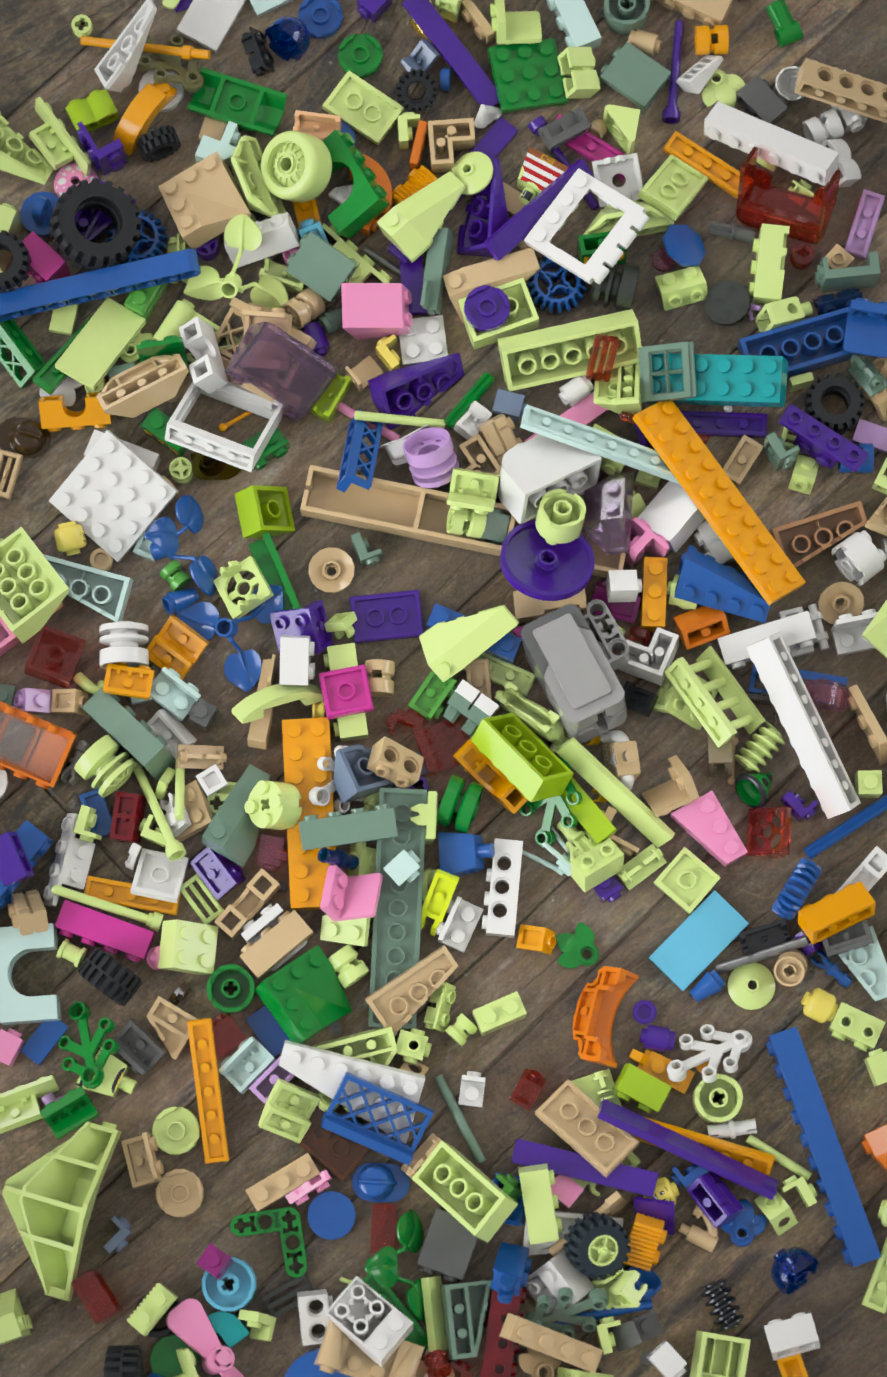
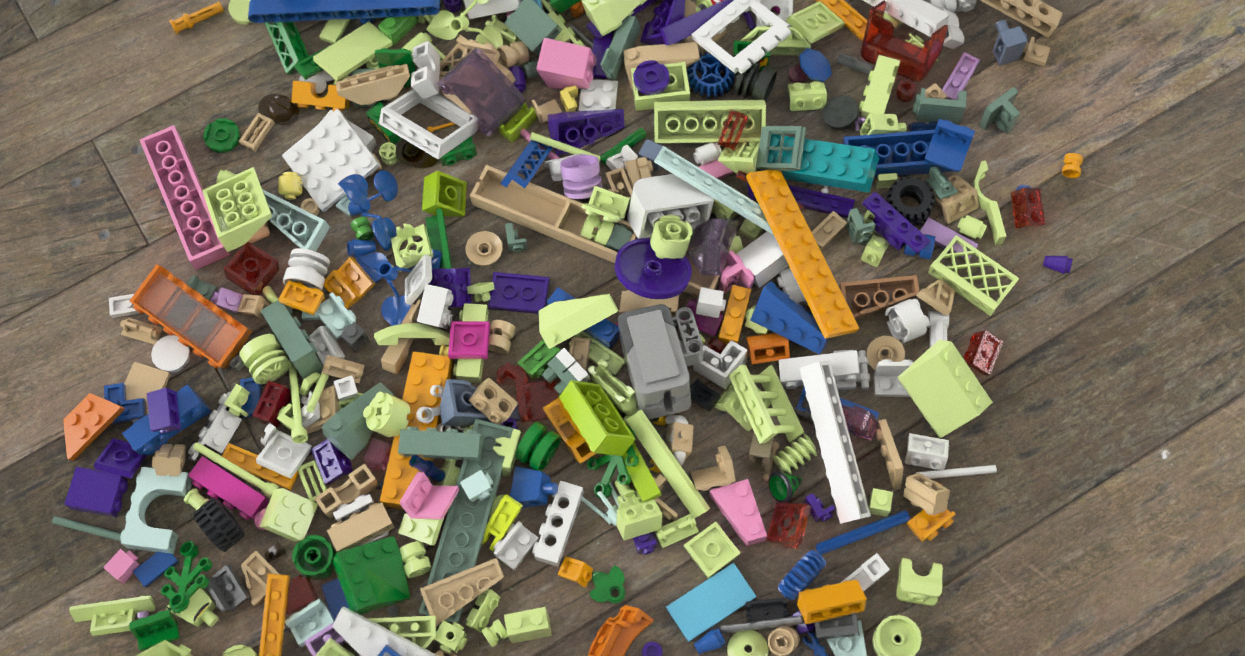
camera: 15 degrees right, 10 degrees down
(264, 629) = (417, 279): none -> white plate

